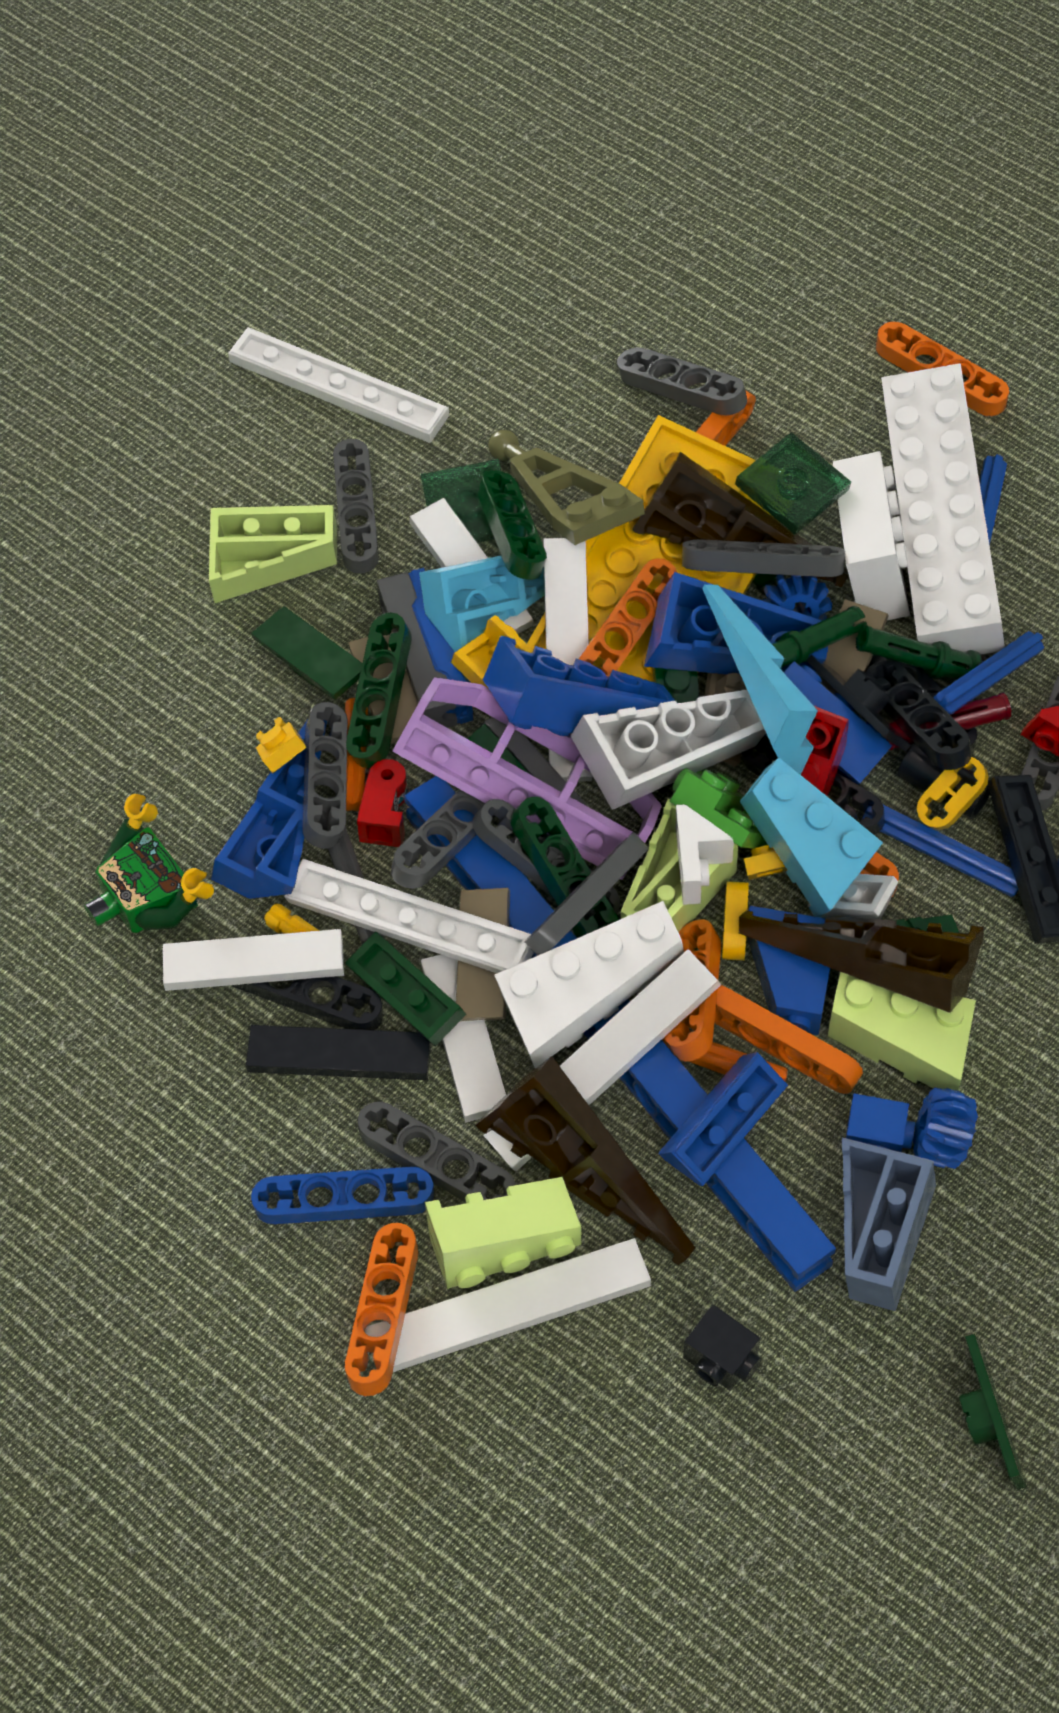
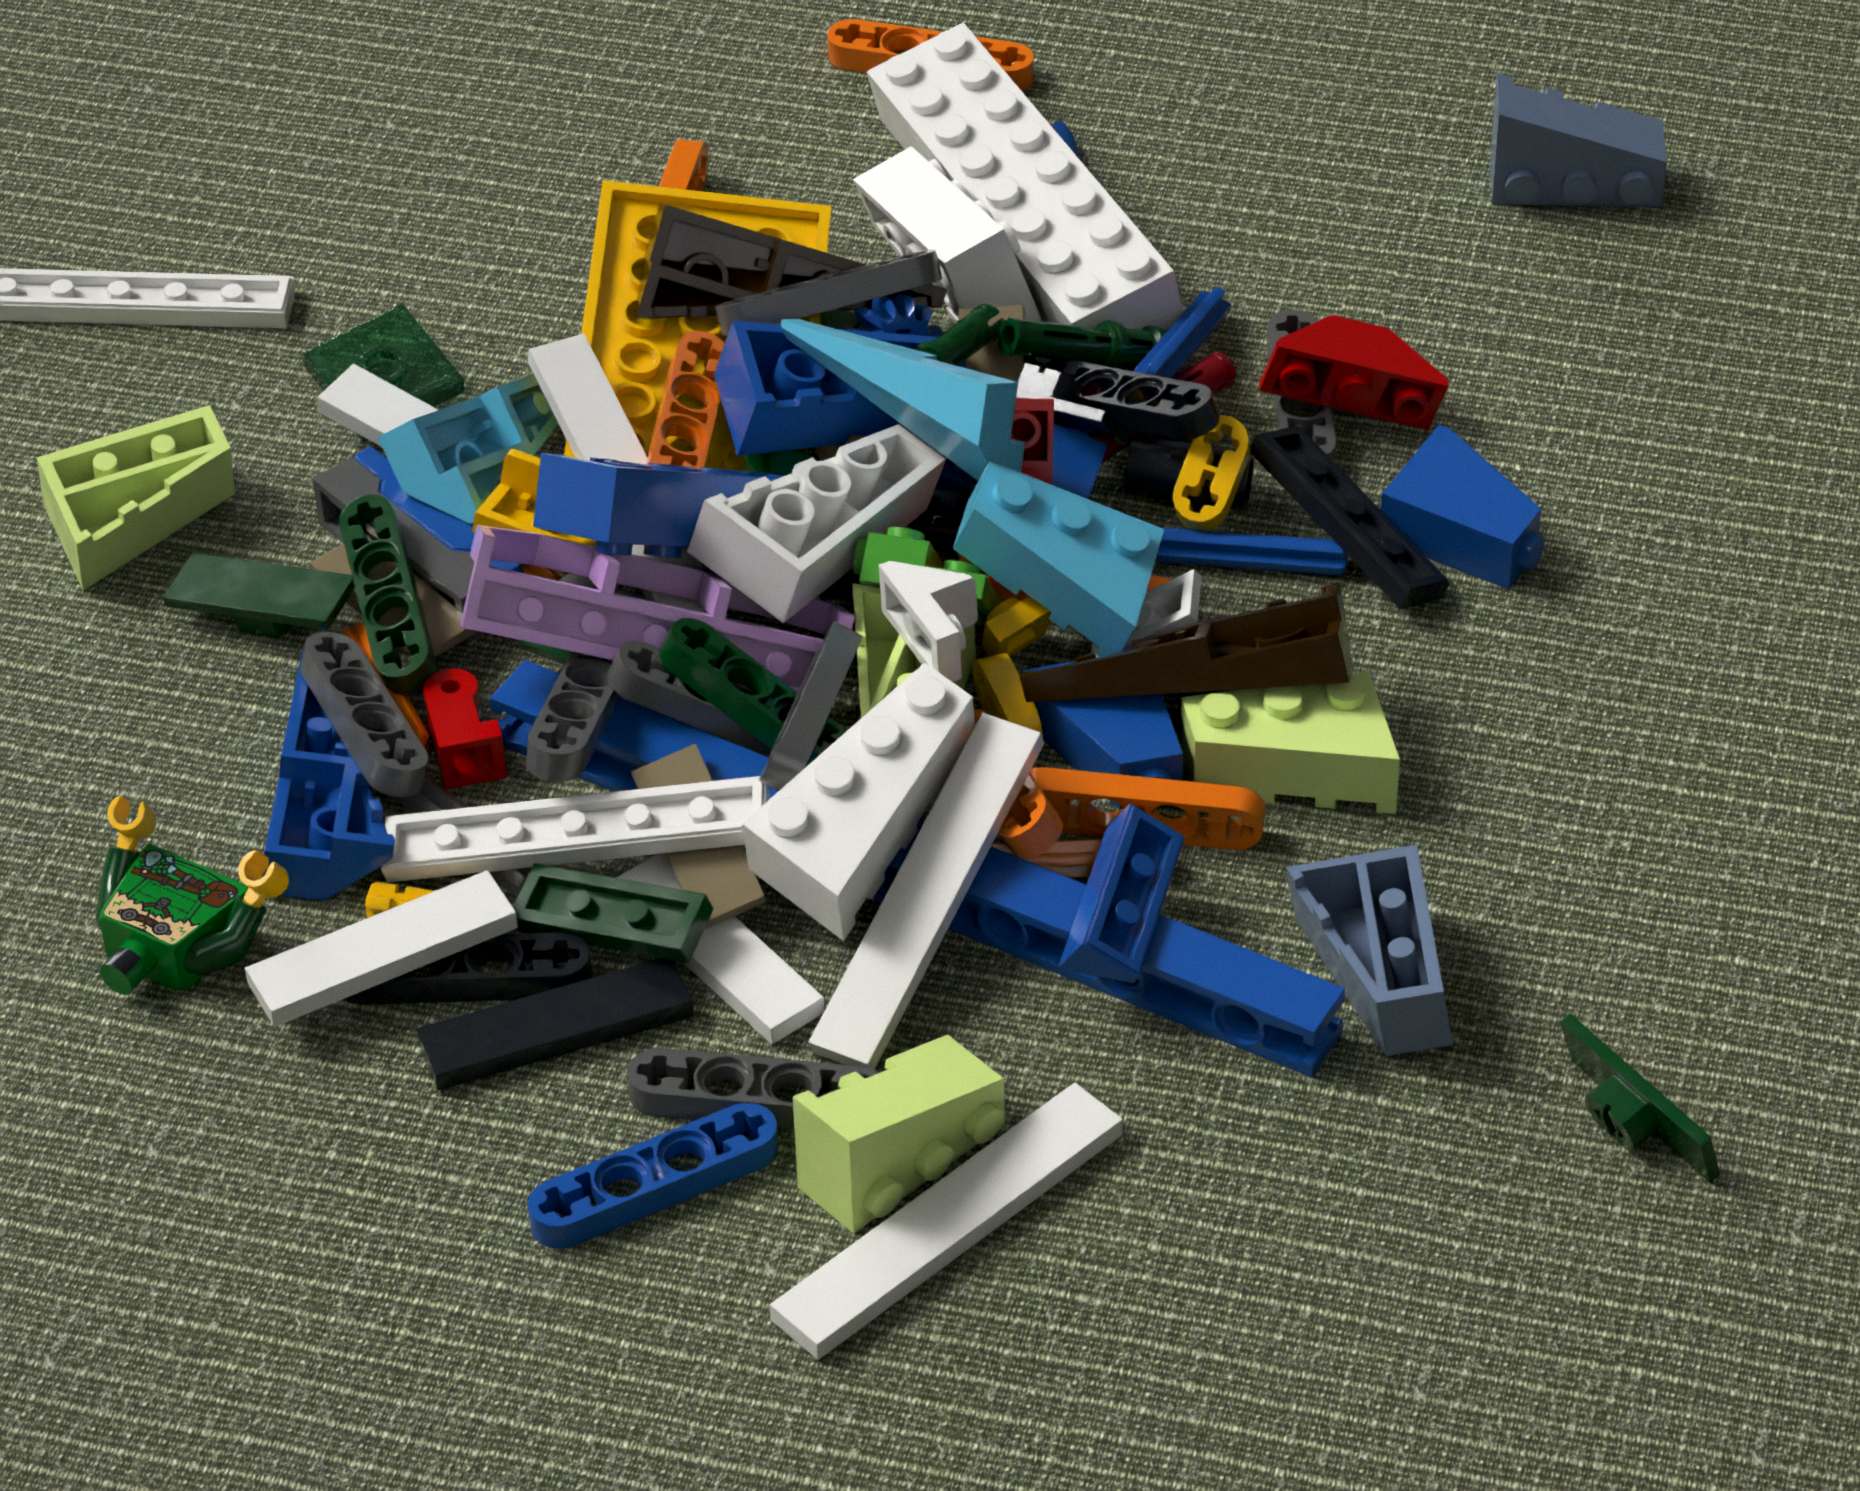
camera: 25 degrees left, 15 degrees down
(279, 744) = (280, 699): yellow plate -> none
(355, 505) = (233, 418): dark grey beam -> none
(380, 1307) = (784, 1268): orange beam -> none
(511, 525) = (471, 354): dark green beam -> none
(561, 1131) = (915, 985): dark brown wedge -> none
(582, 519) = (574, 306): olive plate -> none
(720, 394) = (602, 153): dark grey beam -> none
(722, 1349) = (1259, 1156): black brick -> none
(793, 483) = (822, 203): clear green plate -> none
(880, 1123) = (1312, 840): blue brick -> none
(945, 1127) = (1407, 810): blue gear -> none

